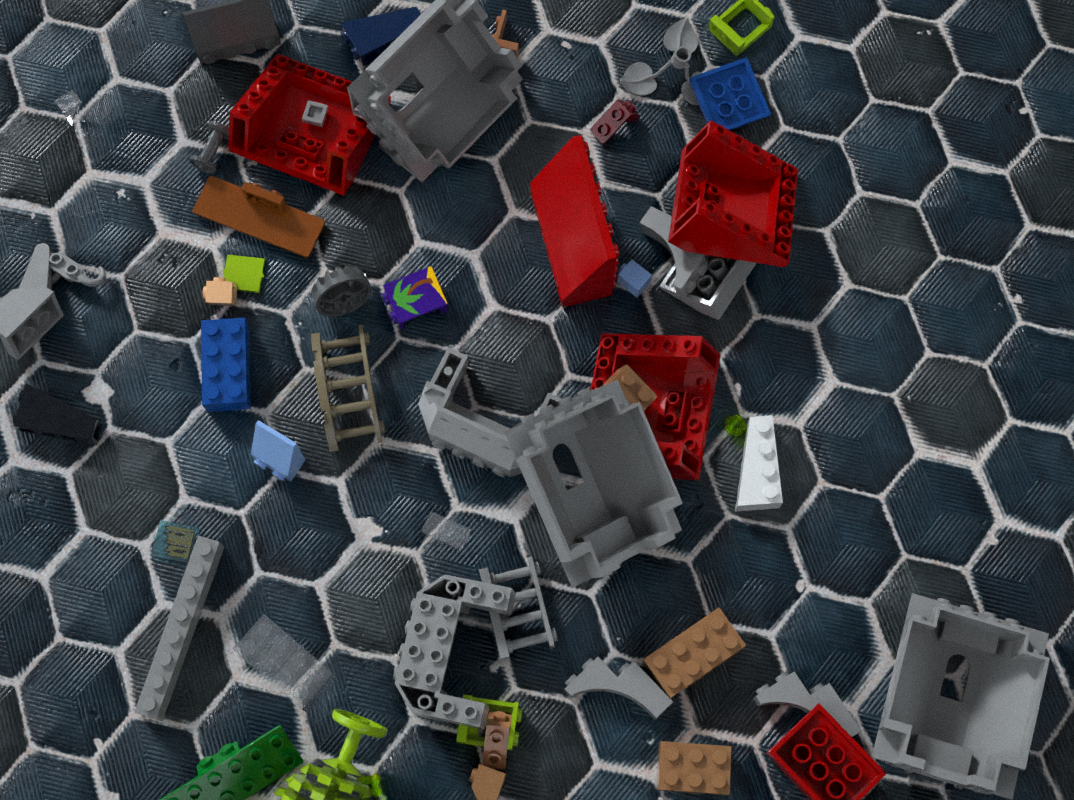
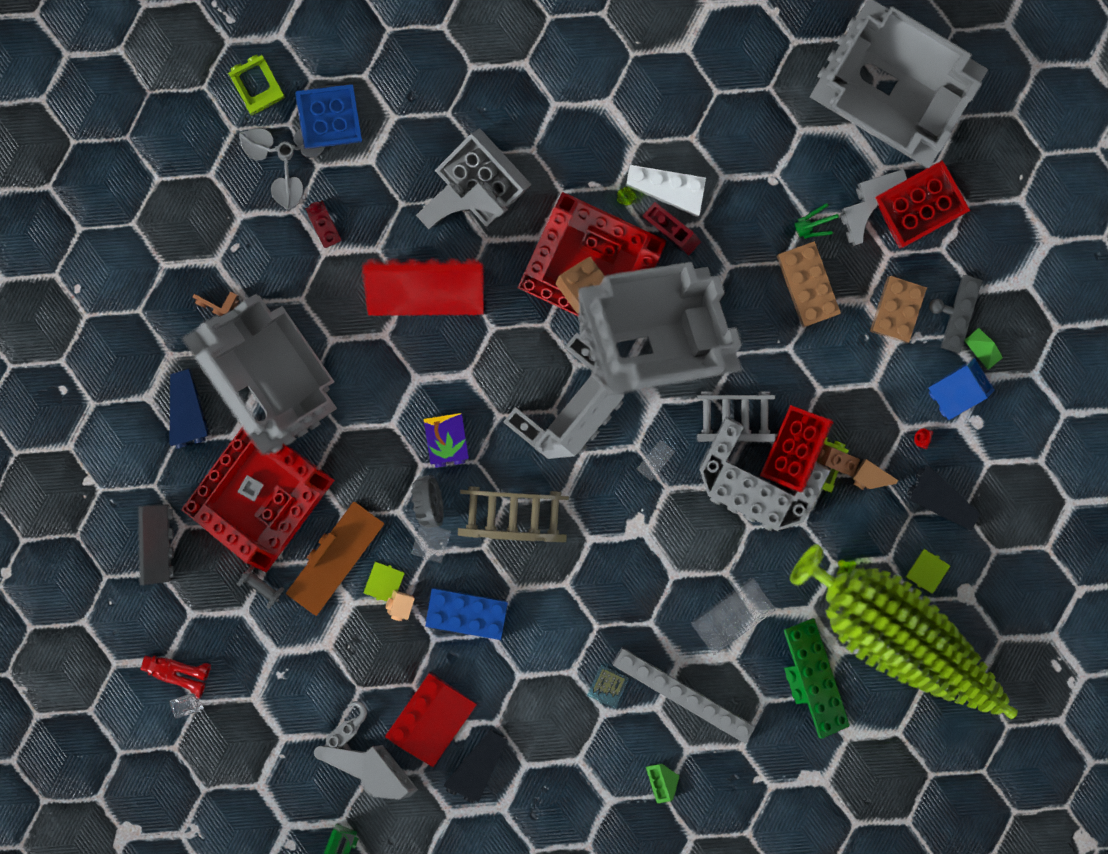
camera: 75 degrees left, 15 degrees up
(74, 632) = (663, 782): none -> bright green slope
(100, 355) = (430, 719): none -> red slope
(102, 77) = (166, 669): none -> red piece
(276, 452) = (558, 587): light blue slope -> none
(297, 312) = (431, 543): none -> clear piece
(497, 682) = (796, 448): none -> red slope
(630, 683) = (818, 342): light grey arch -> none
(633, 278) = (475, 247): light blue brick -> none
(713, 484) = (672, 228): none -> dark red slope
(733, 199) = (433, 143): red slope -> none
(759, 633) = (805, 227): none -> green plant

